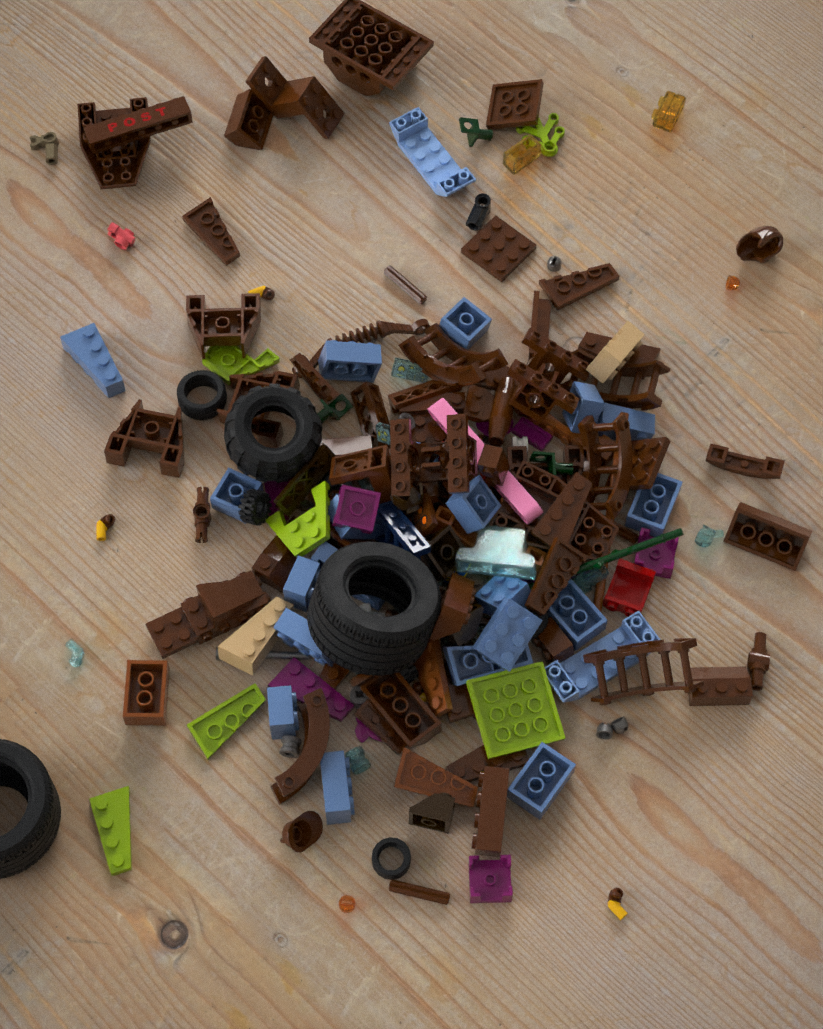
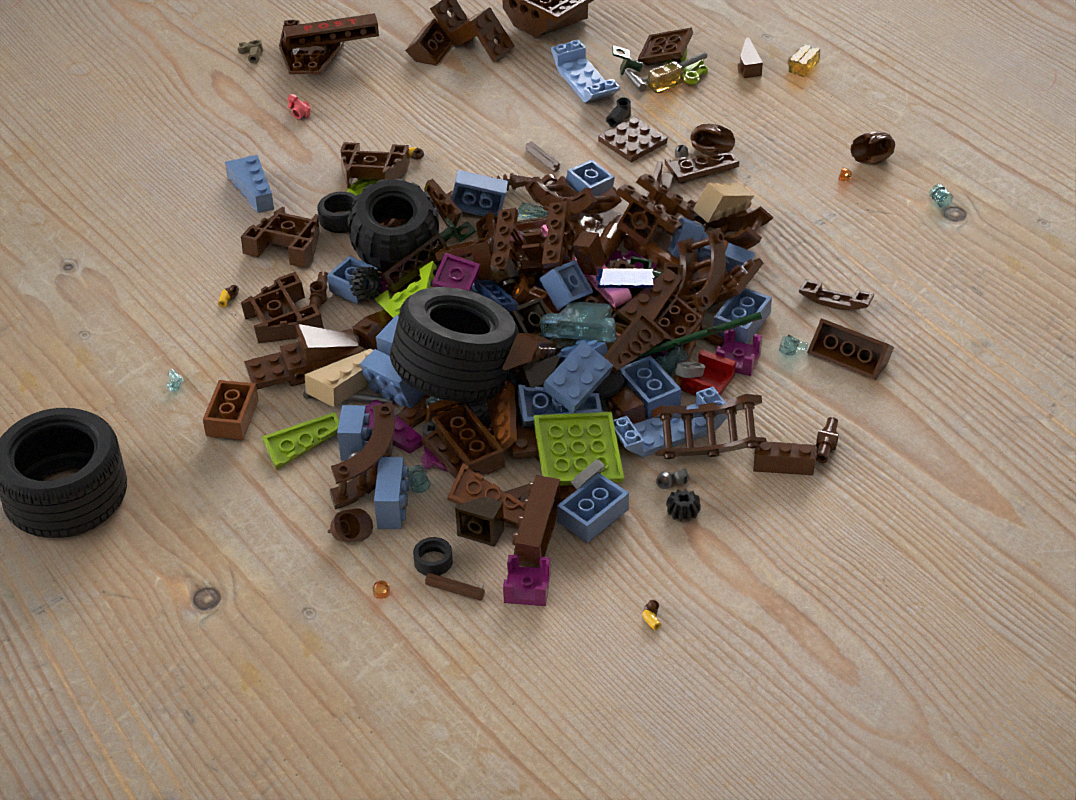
camera: 10 degrees right, 20 degrees down
(114, 827) = (172, 510): lime wing -> none
(165, 549) = (277, 311): none -> reddish brown wedge
(212, 231) = (379, 110): reddish brown wing -> none
(494, 160) = (641, 83): none -> flat silver bar
(532, 746) = (588, 473): none -> light grey beam
(534, 491) = (625, 278): none -> clear blue piece
(586, 248) = (712, 139): none -> reddish brown hair
(610, 119) = (750, 61): none -> slope
(611, 588) = (690, 369): none -> light grey beam
(625, 757) = (683, 505): none -> black gear

